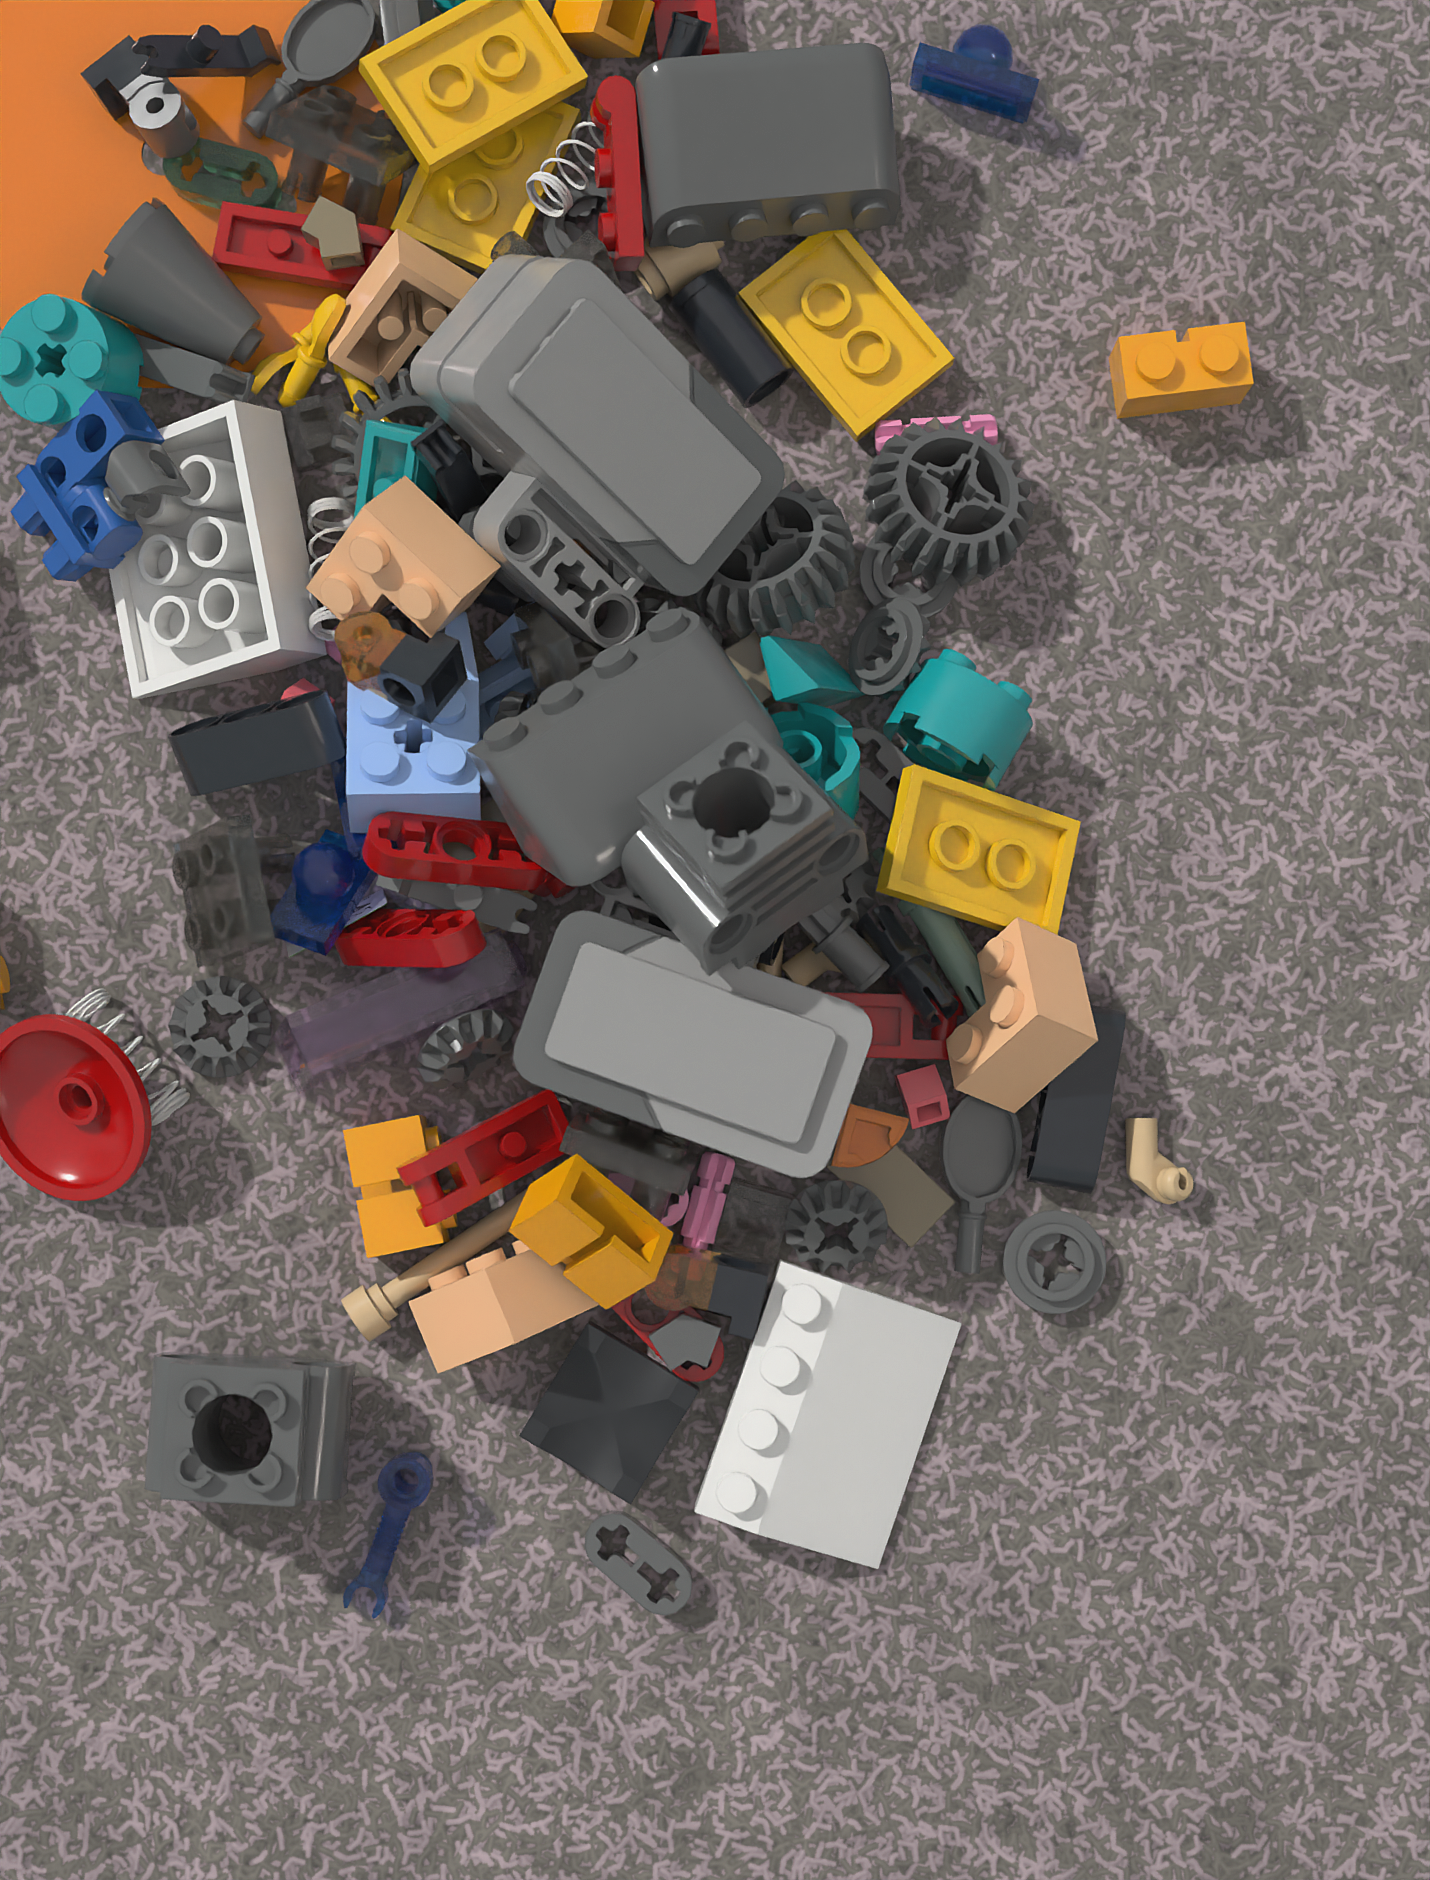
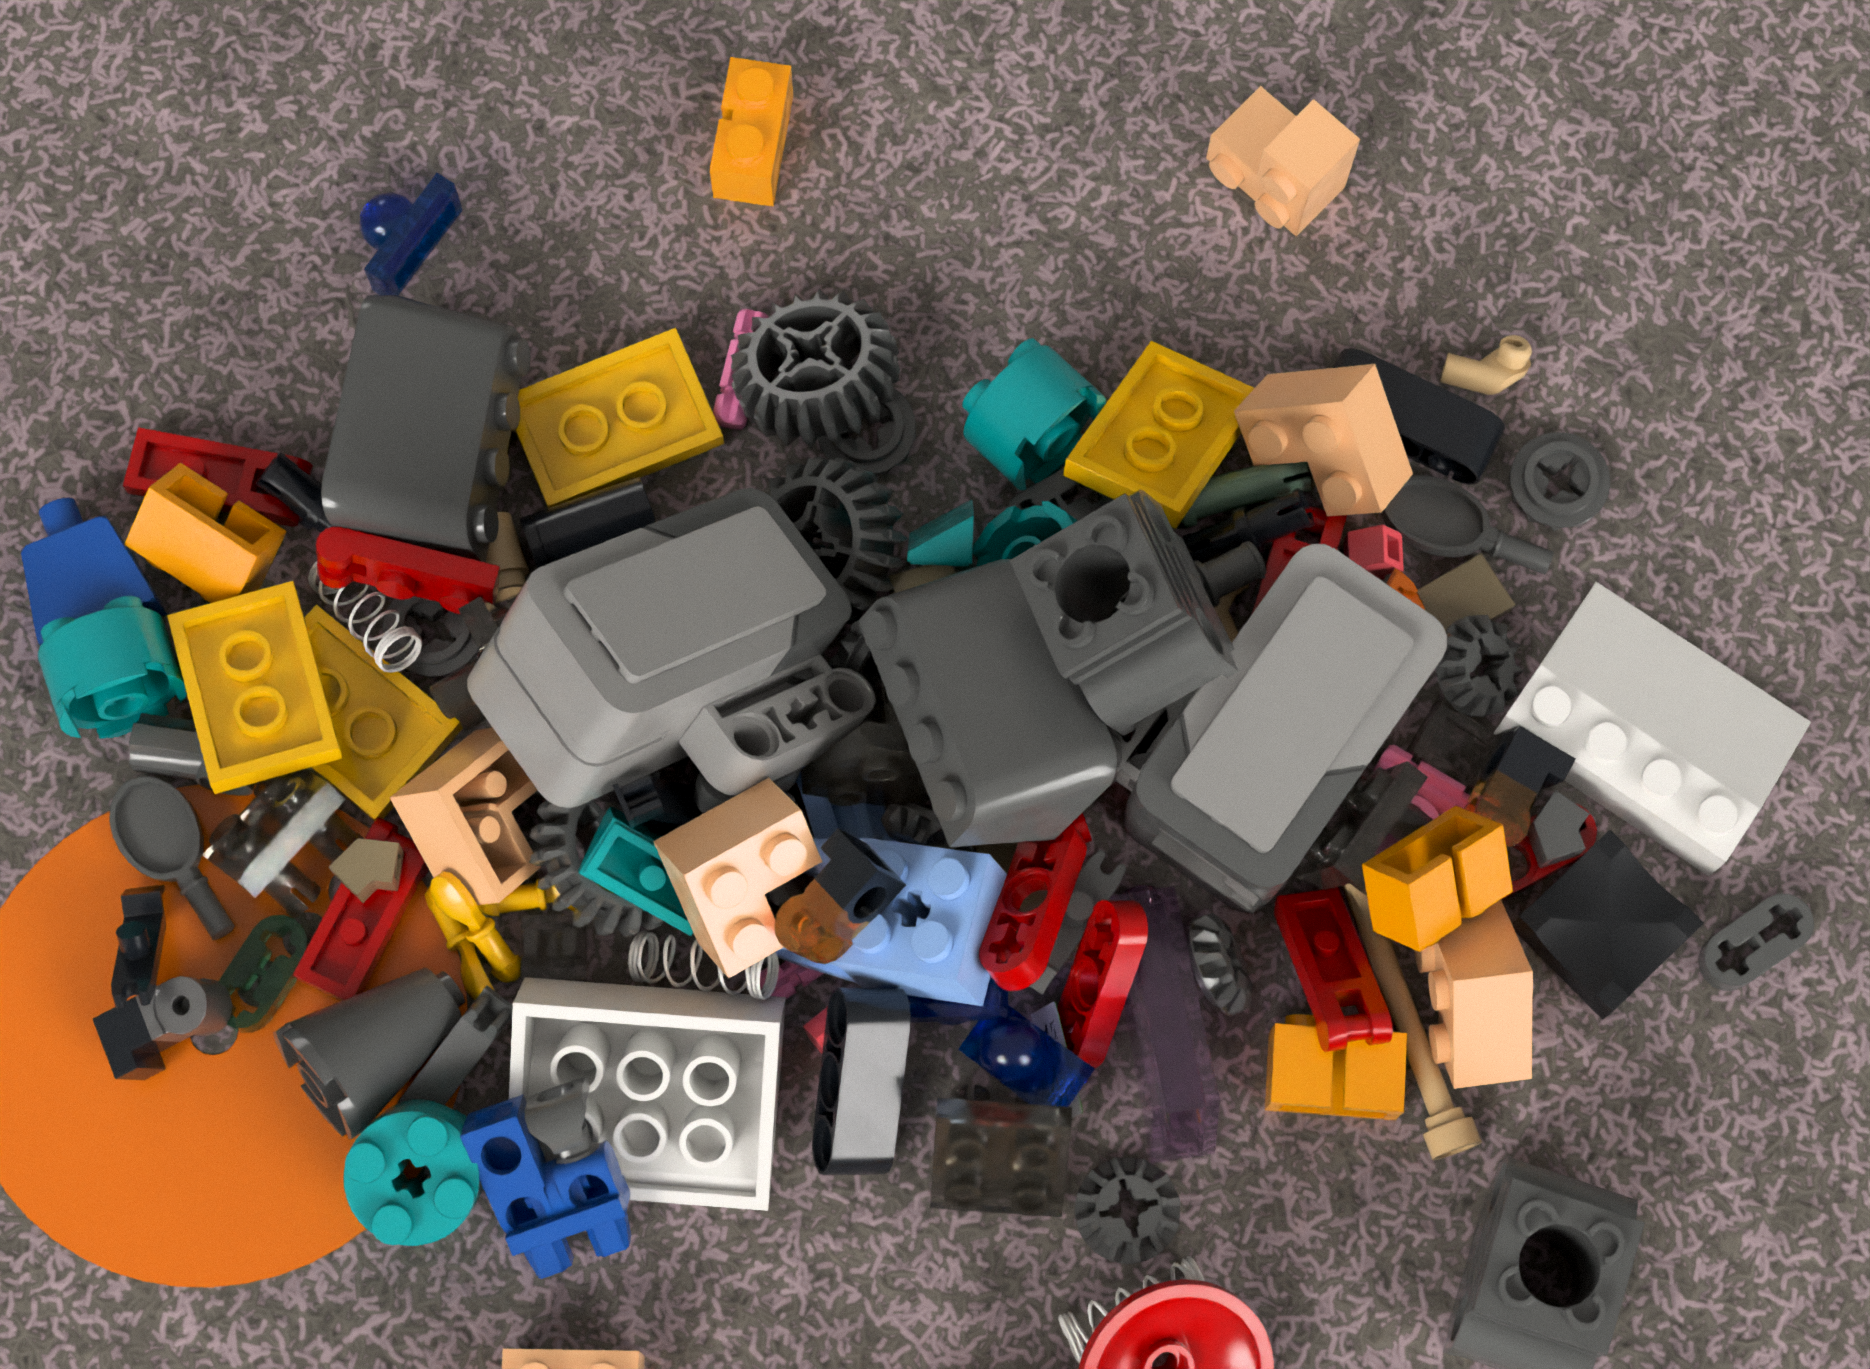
camera: 80 degrees left, 10 degrees down
(399, 1500) = (1645, 1152): clear blue brick -> none
(873, 644) = (927, 479): dark grey gear -> none
(1310, 899) = (1283, 159): none -> light nougat brick

